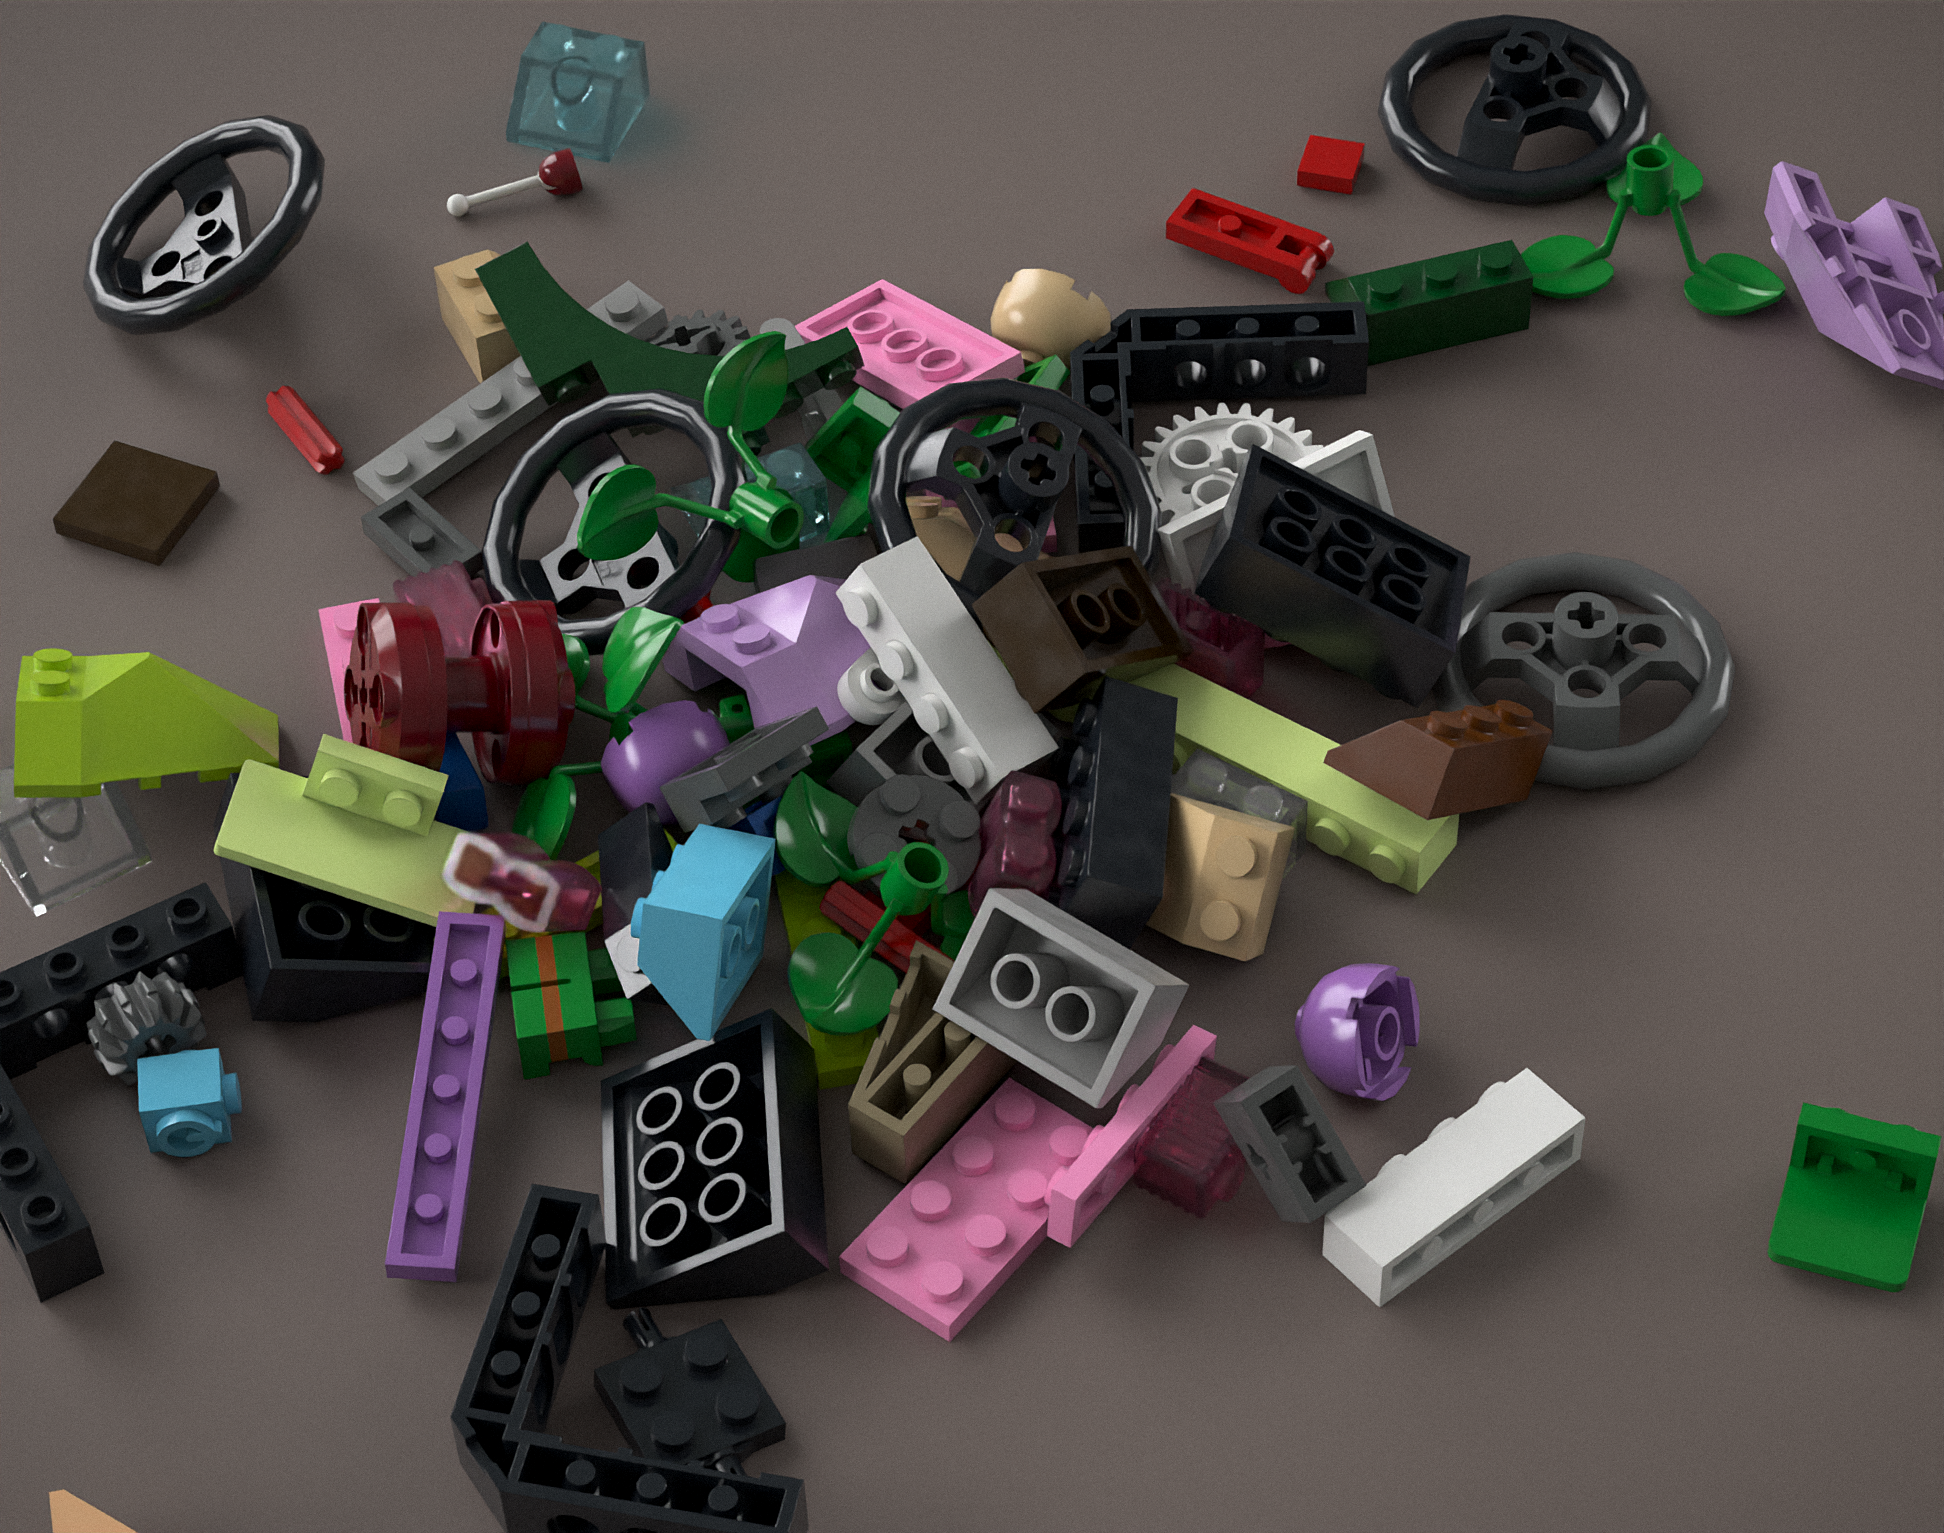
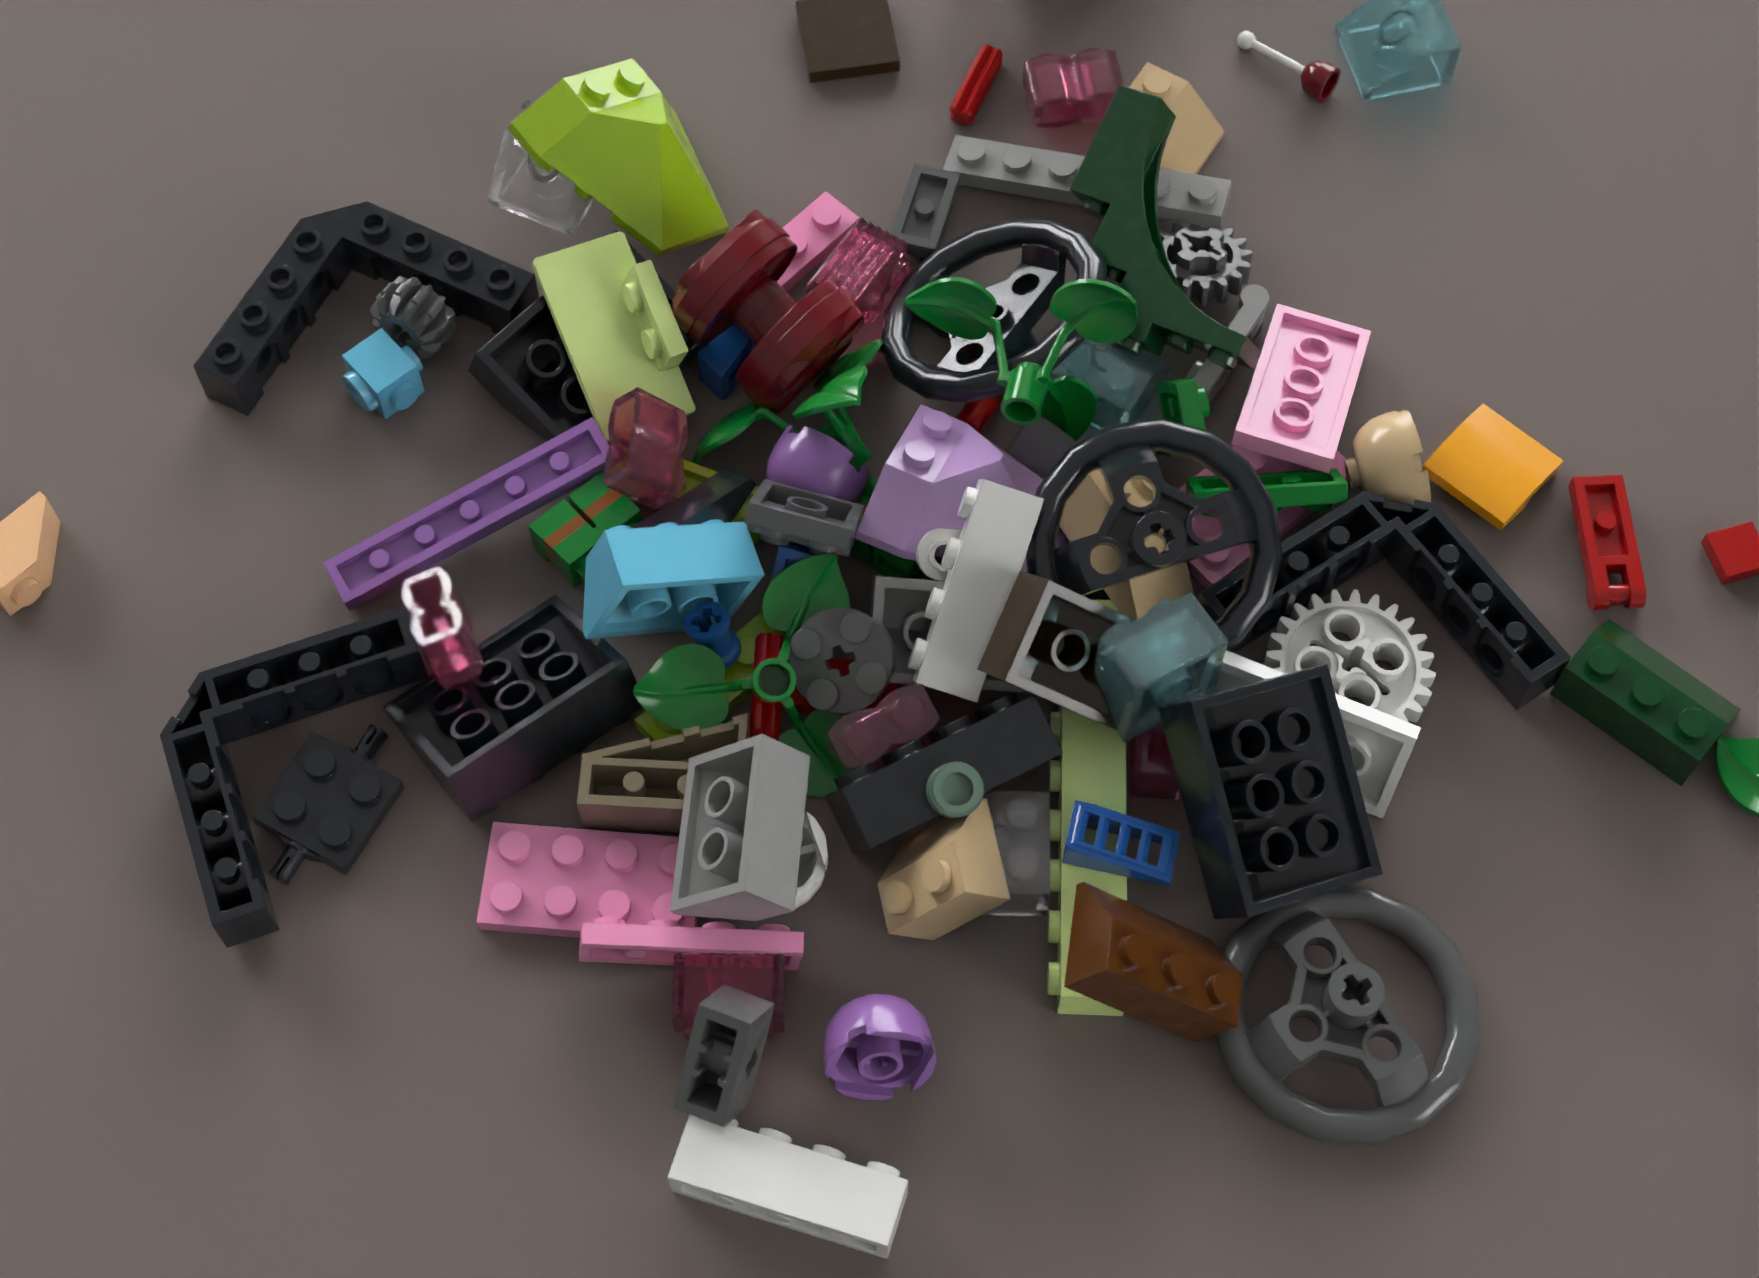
camera: 55 degrees right, 15 degrees up
(390, 352) = (1070, 87): none -> clear pink brick
(583, 1158) = (441, 627): none -> clear pink brick
(793, 923) = (715, 636): none -> blue bush
(1111, 263) = (1491, 466): none -> light orange slope
(1153, 557) = (1158, 662): none -> clear light blue slope
(1156, 792) = (954, 789): none -> sand green tile
(1280, 753) = (1109, 821): none -> blue slope

